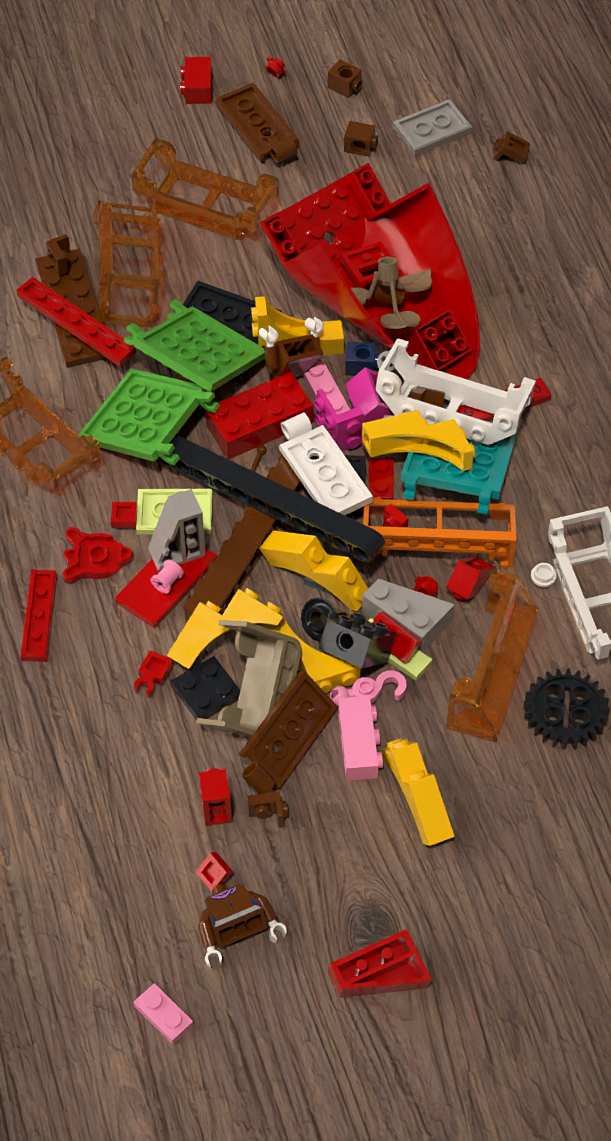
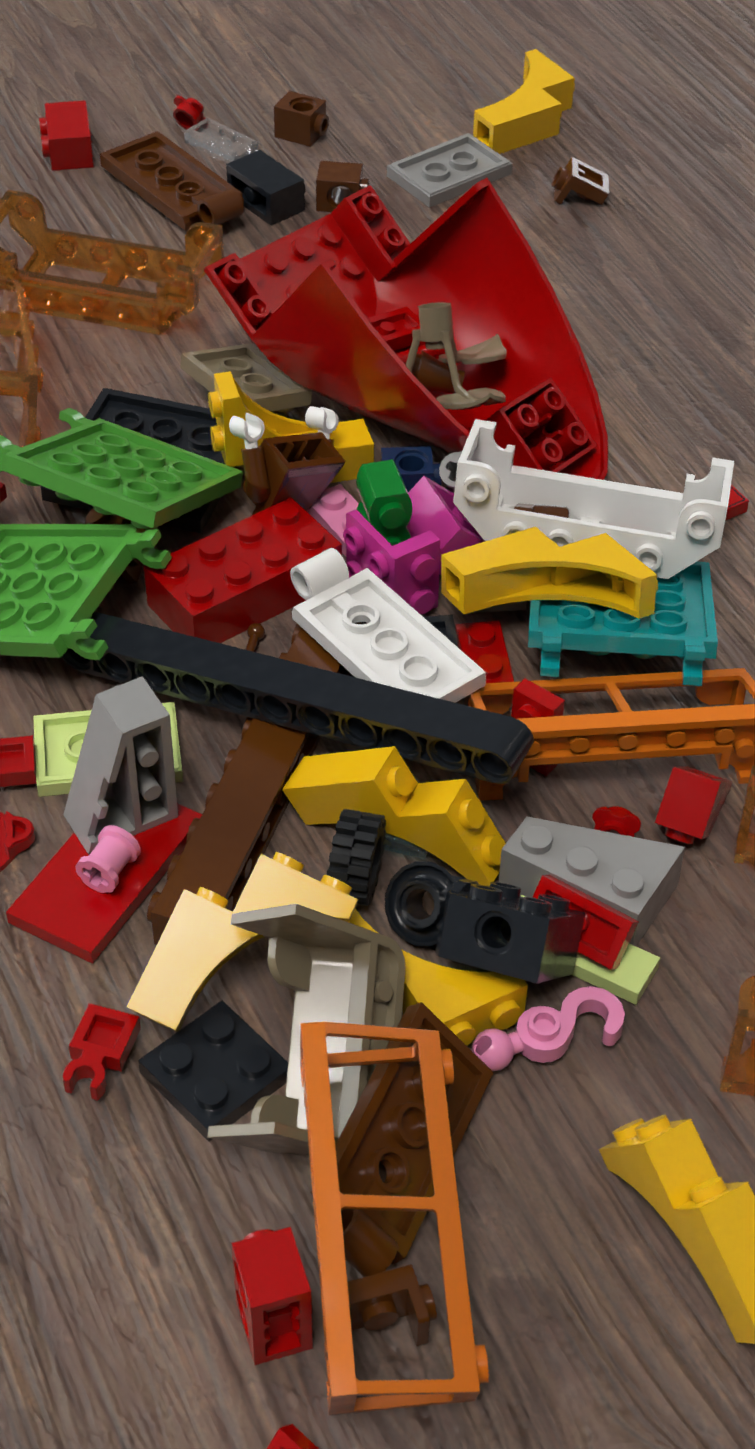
camera: 10 degrees left, 10 degrees down
(276, 284) = (251, 371): none -> dark tan plate
(290, 589) = (358, 852): none -> black tyre
(292, 93) = (219, 140): none -> clear plate
(302, 706) = (436, 1071): none -> orange windscreen
(314, 134) = (267, 187): none -> black brick
(338, 386) = (384, 500): none -> green brick
(359, 738) = (553, 1132): bright pink brick -> none
(494, 84) = (530, 111): none -> yellow arch

